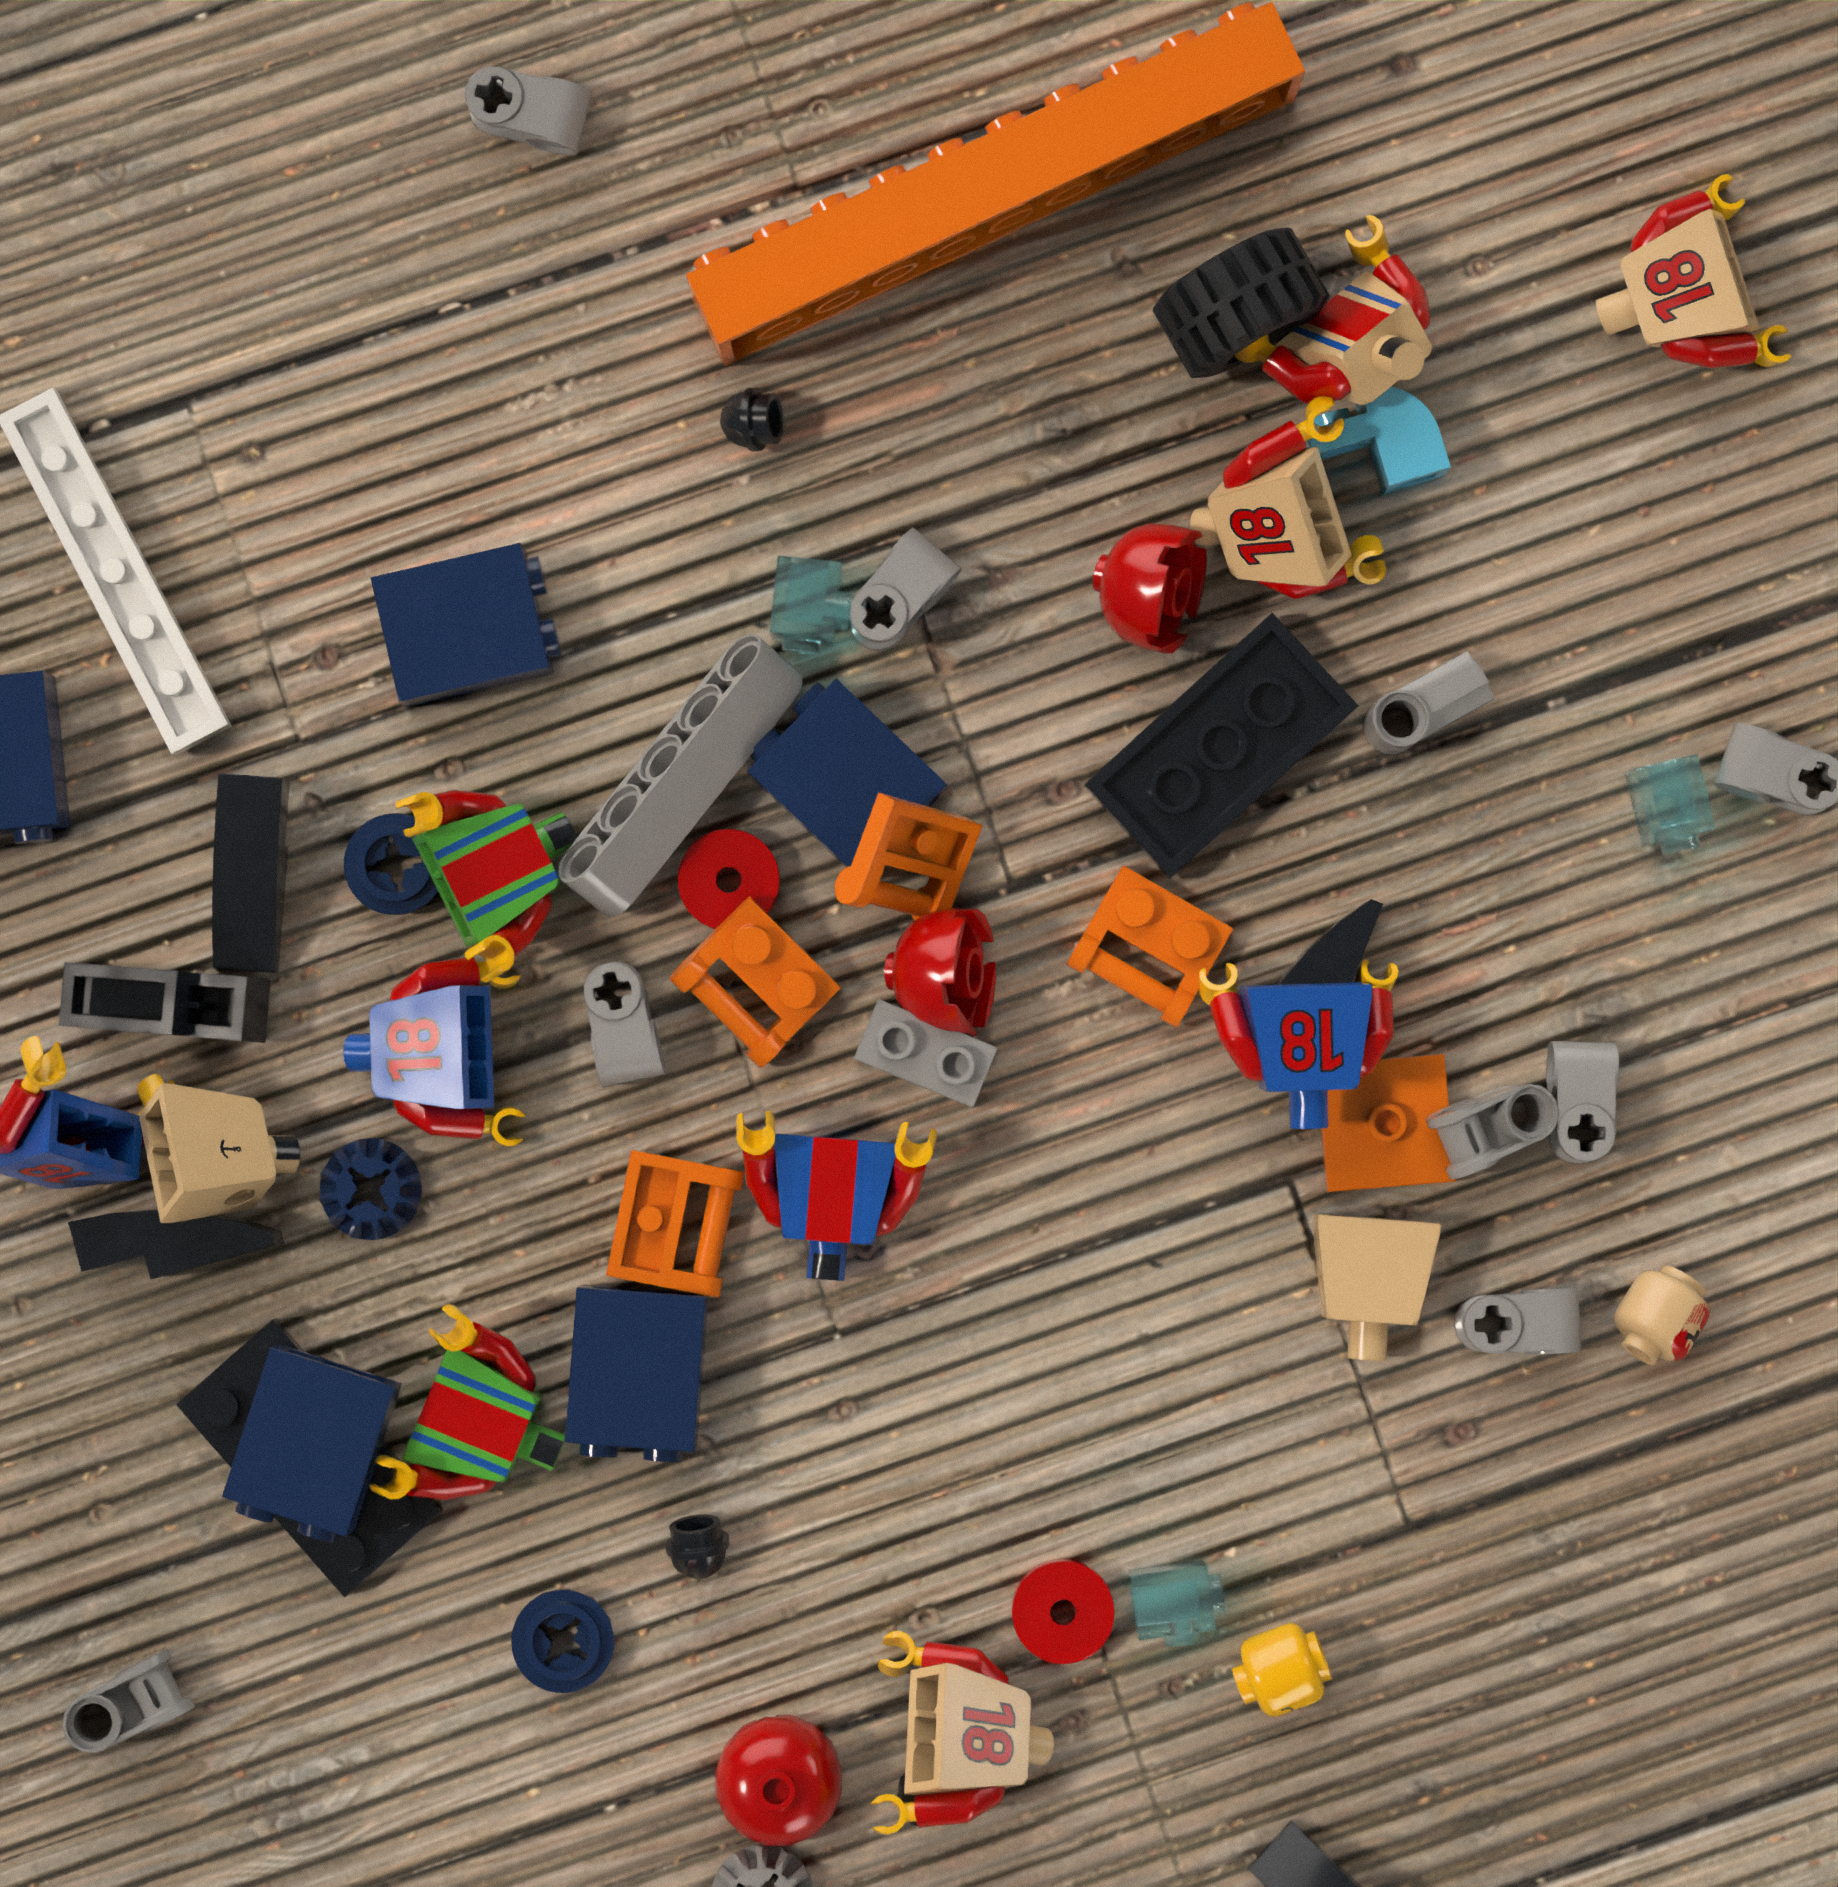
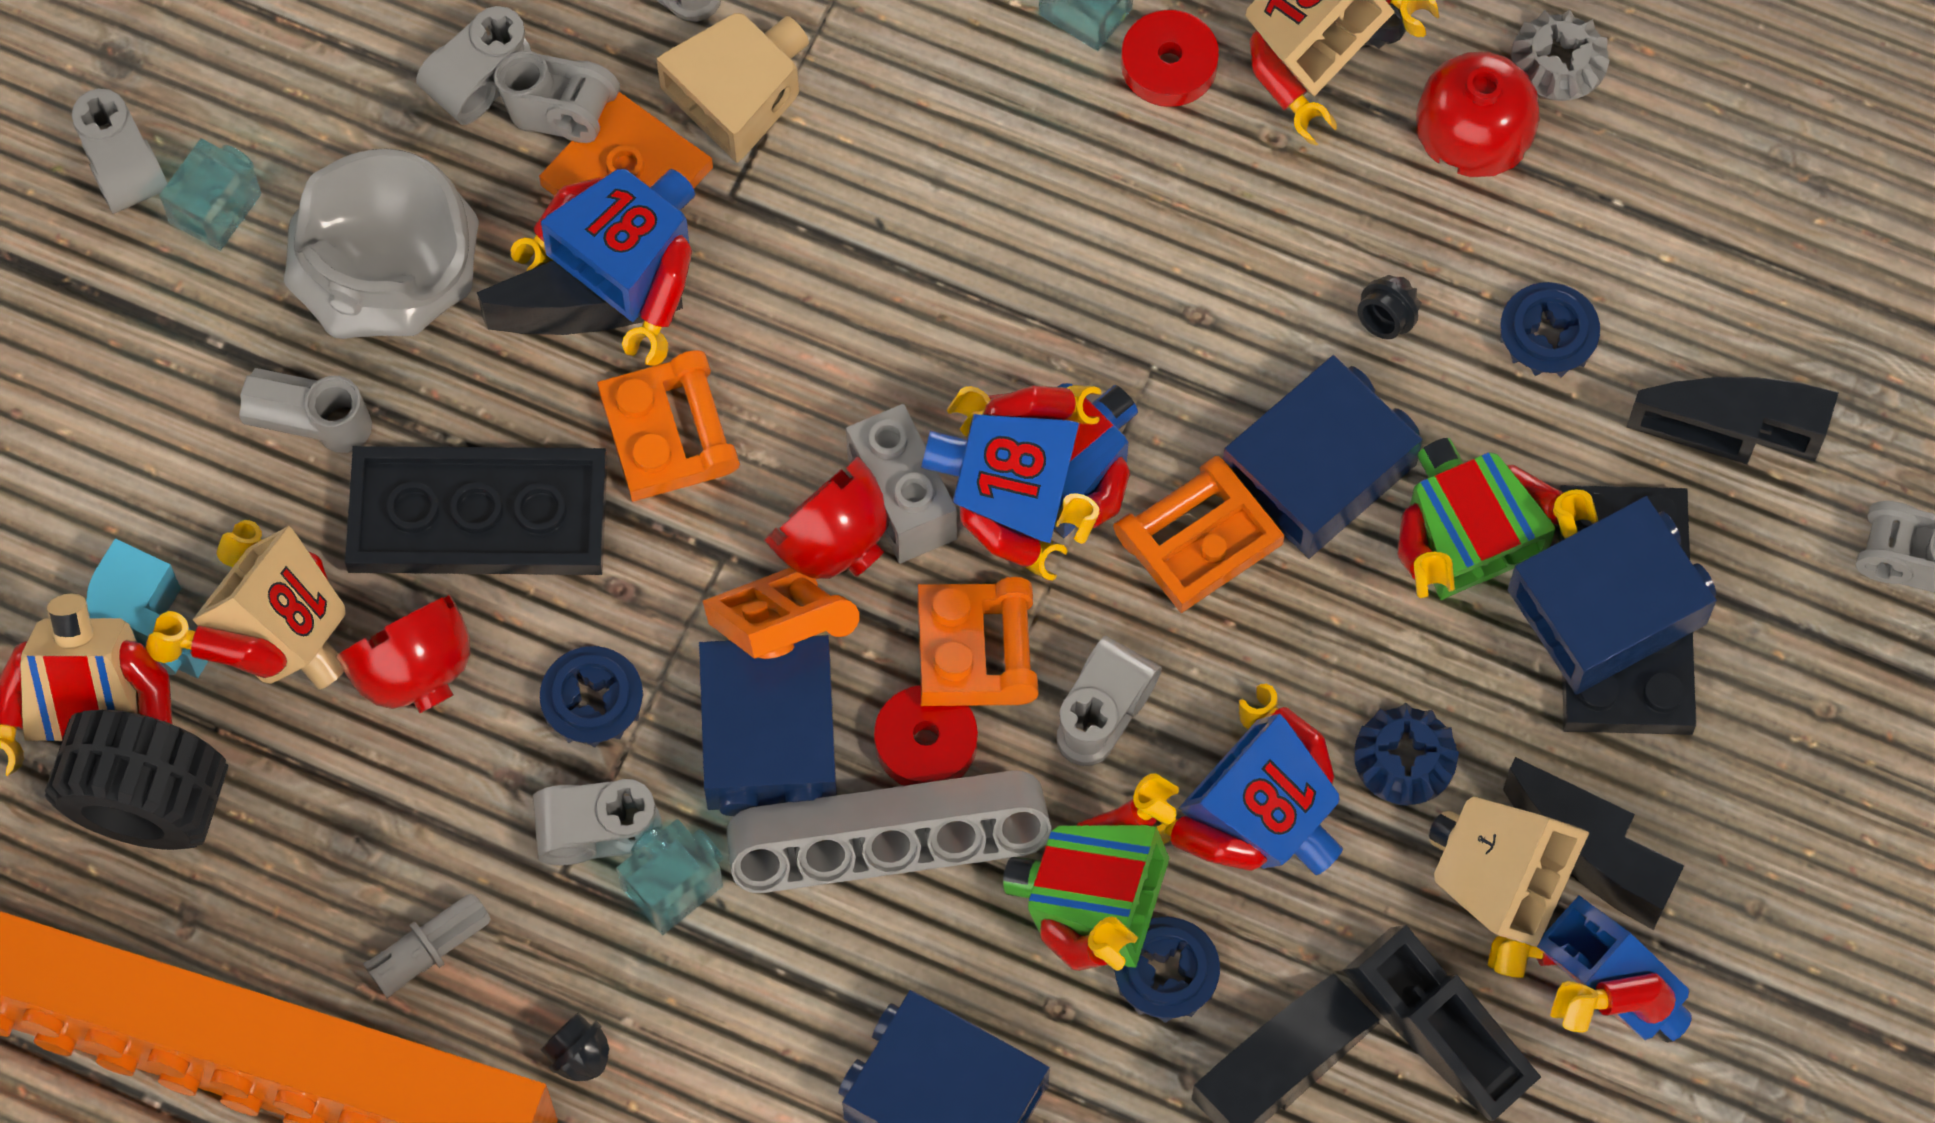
camera: 140 degrees left, 20 degrees down
(351, 1695) = (1735, 414): none -> black slope
(833, 1125) = (1014, 470): none -> torso
(932, 396) = (426, 944): none -> light grey axle
(980, 661) = (599, 669): none -> dark blue gear
(1500, 882) = (380, 245): none -> light grey piece

